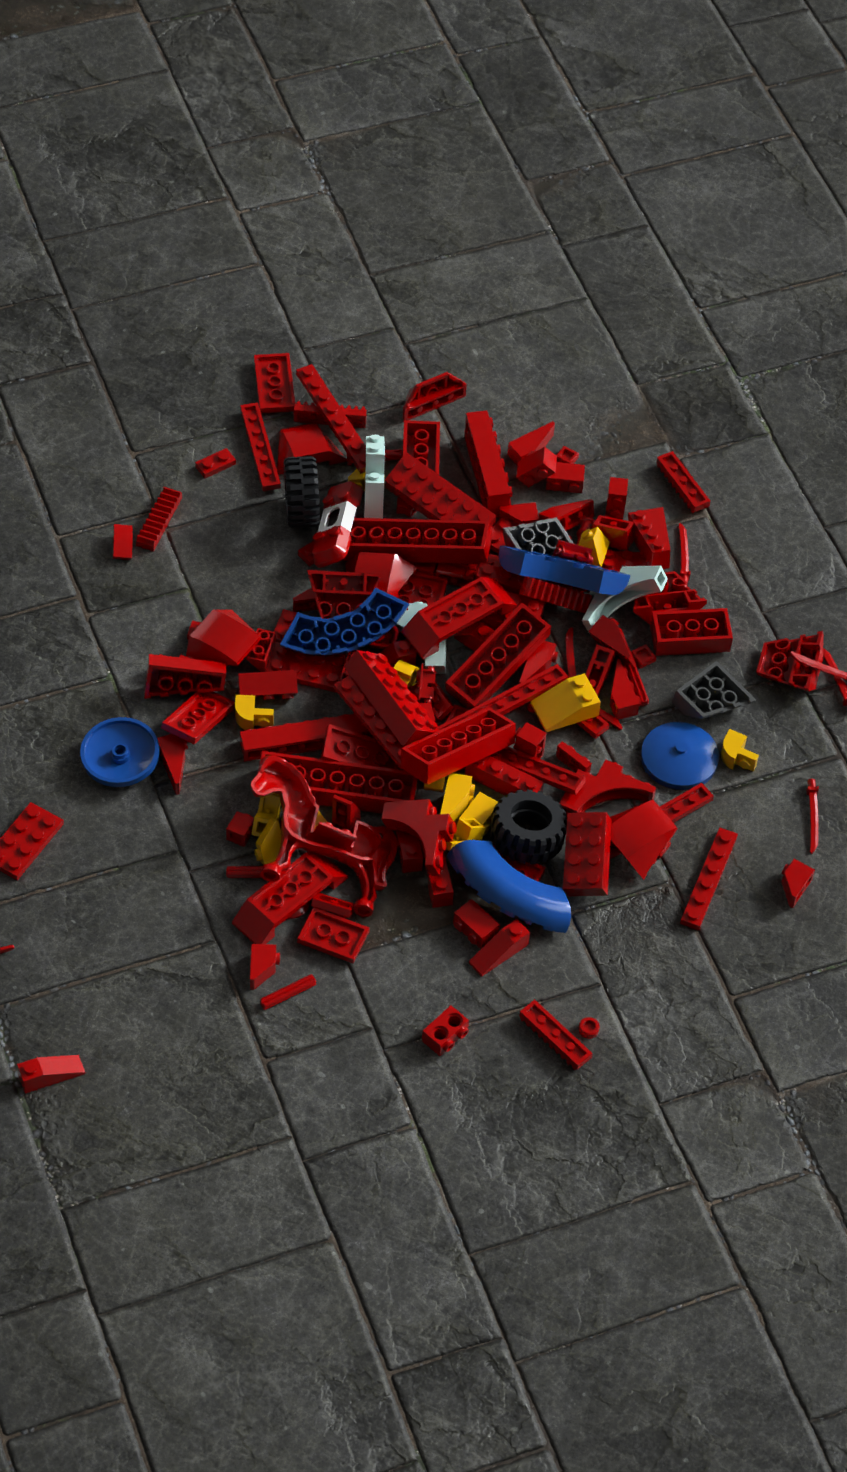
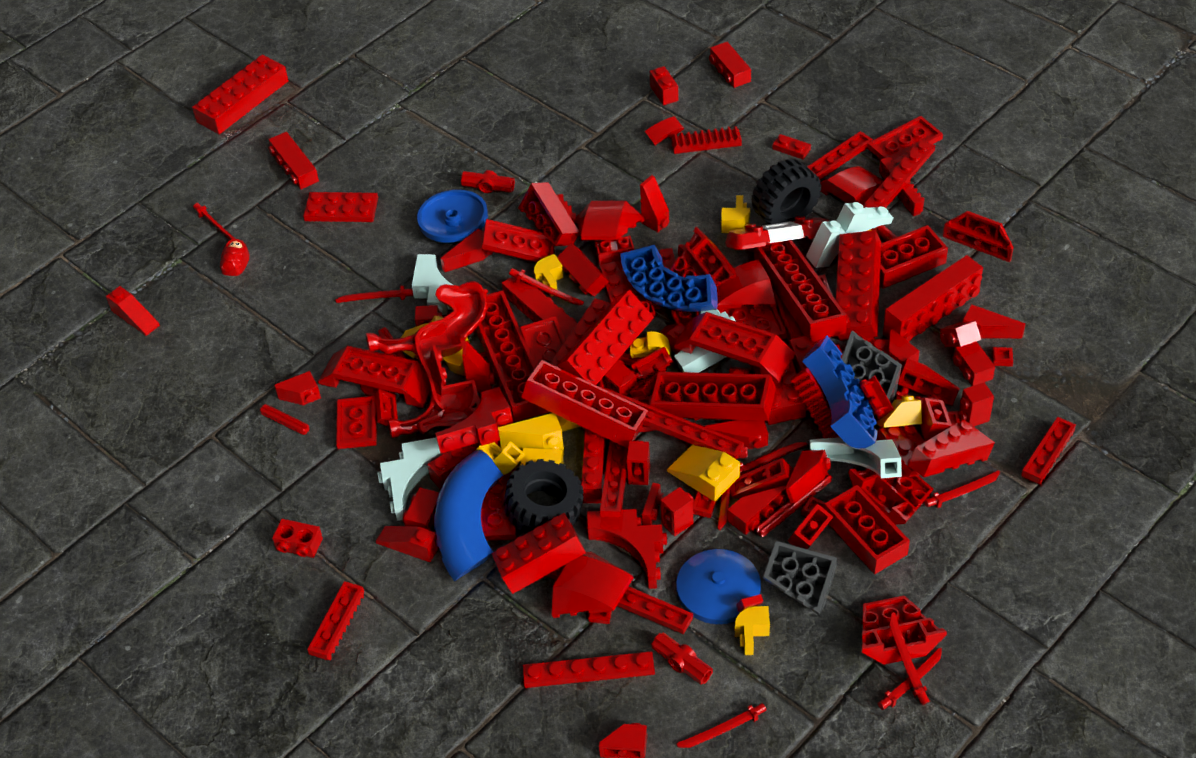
camera: 70 degrees right, 5 degrees down
(33, 957) = (234, 258): none -> red piece
(61, 512) = (663, 85): none -> red brick
(70, 449) = (730, 64): none -> red brick
(86, 706) = (488, 181): none -> red piece
(187, 836) = (379, 294): none -> red sword
(195, 808) = (428, 280): none -> light aqua arch
(233, 594) = (653, 205): none -> red slope
(252, 730) = (521, 276): none -> red sword
(280, 544) = (735, 217): none -> yellow brick
(424, 923) = (403, 474): none -> light aqua arch
(589, 1027) = (361, 645): red tile -> none
(598, 742) = (677, 511): none -> red brick
(669, 666) = (810, 527): none -> red brick
(718, 739) = (749, 602): none -> red tile
(738, 810) = (682, 658): none -> red piece

